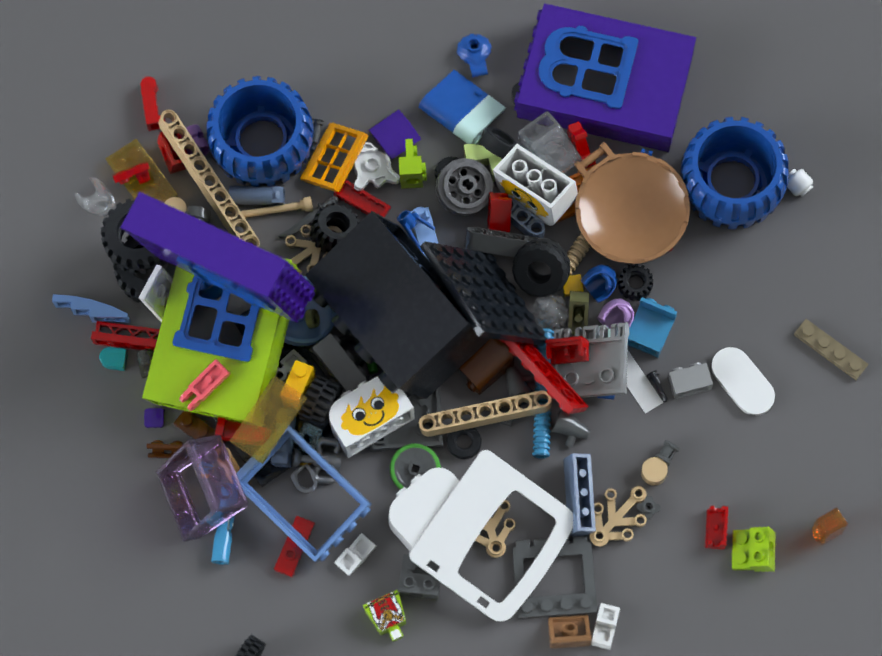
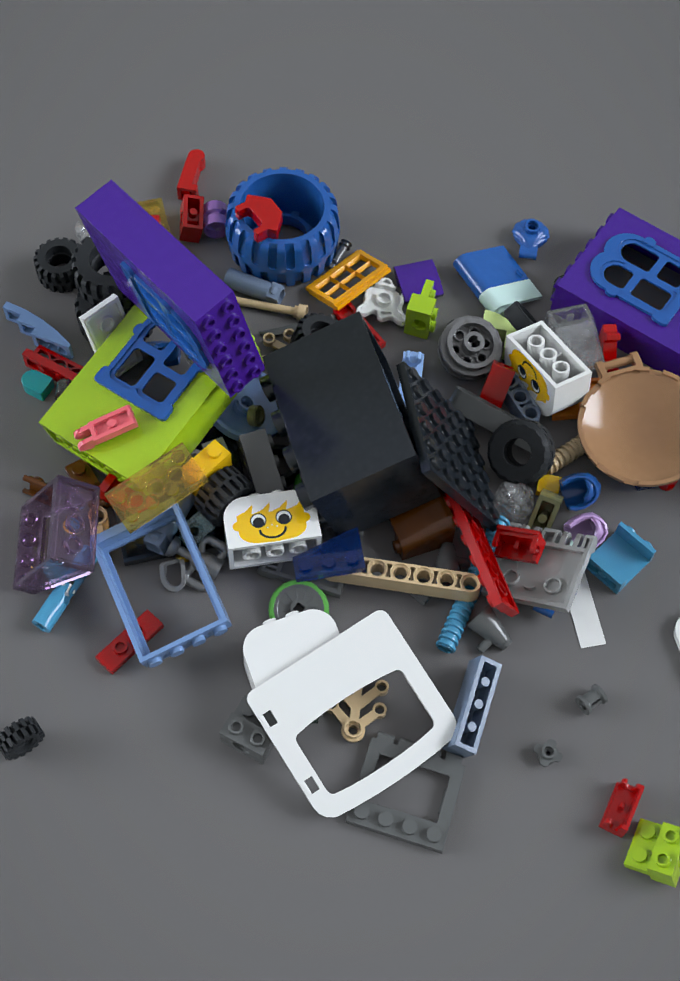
camera: 15 degrees right, 10 degrees down
(74, 227) = (51, 255): none -> black tyre
(154, 418) = (48, 456): dark purple piece -> none
(207, 173) = (205, 226): tan beam -> none
(248, 137) = (265, 215): none -> red piece
(355, 554) = (193, 676): white slope -> none
(387, 614) = (197, 756): torso -> none
(408, 222) = (396, 355): blue plant -> none
(427, 420) = (332, 558): none -> clear blue wing
(467, 452) = (360, 613): black tyre -> none
(569, 631) = (400, 862): medium nougat slope -> none
(605, 626) = (445, 872): white slope -> none
(616, 518) = (506, 751): tan plant -> none
(631, 292) = (623, 496): black tyre -> none
(654, 471) = (569, 714): tan piece -> none
(655, 380) = (606, 619): black piece -> none
(690, 380) = (646, 630): light grey brick -> none

